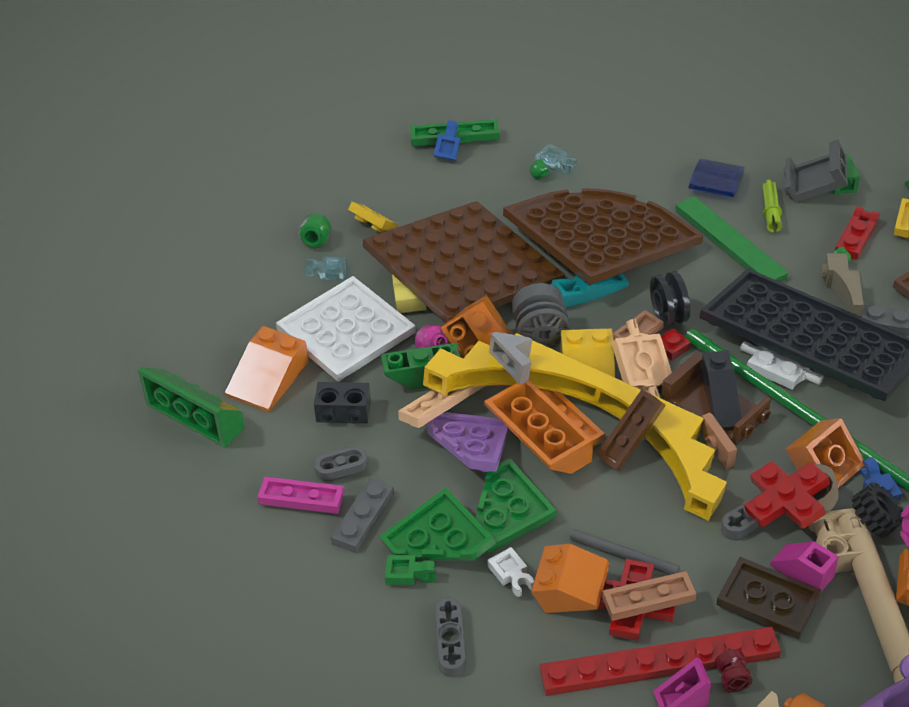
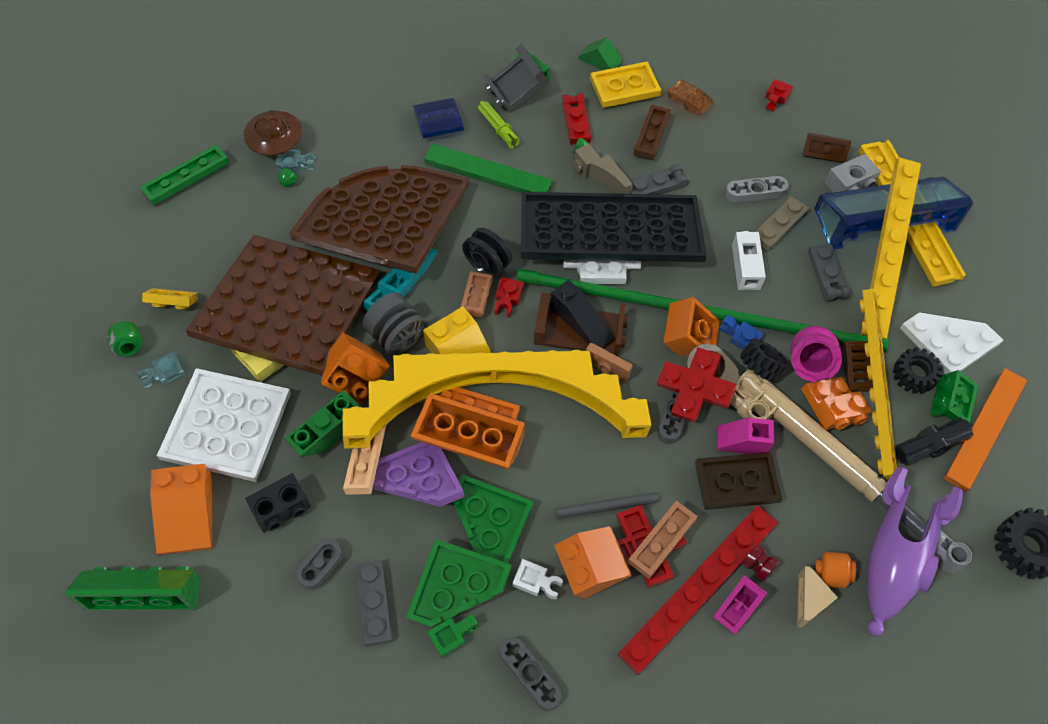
camera: 40 degrees left, 15 degrees up
(301, 495) = (305, 618): dark pink plate -> none
(430, 336) = (315, 396): dark pink head -> none
(448, 145) = (188, 191): blue plate -> none
(512, 354) = (406, 381): light grey slope -> none
(552, 128) = (272, 133): none -> reddish brown helmet
(631, 429) = (544, 394): reddish brown plate -> none
(641, 359) = (505, 322): light nougat plate -> none

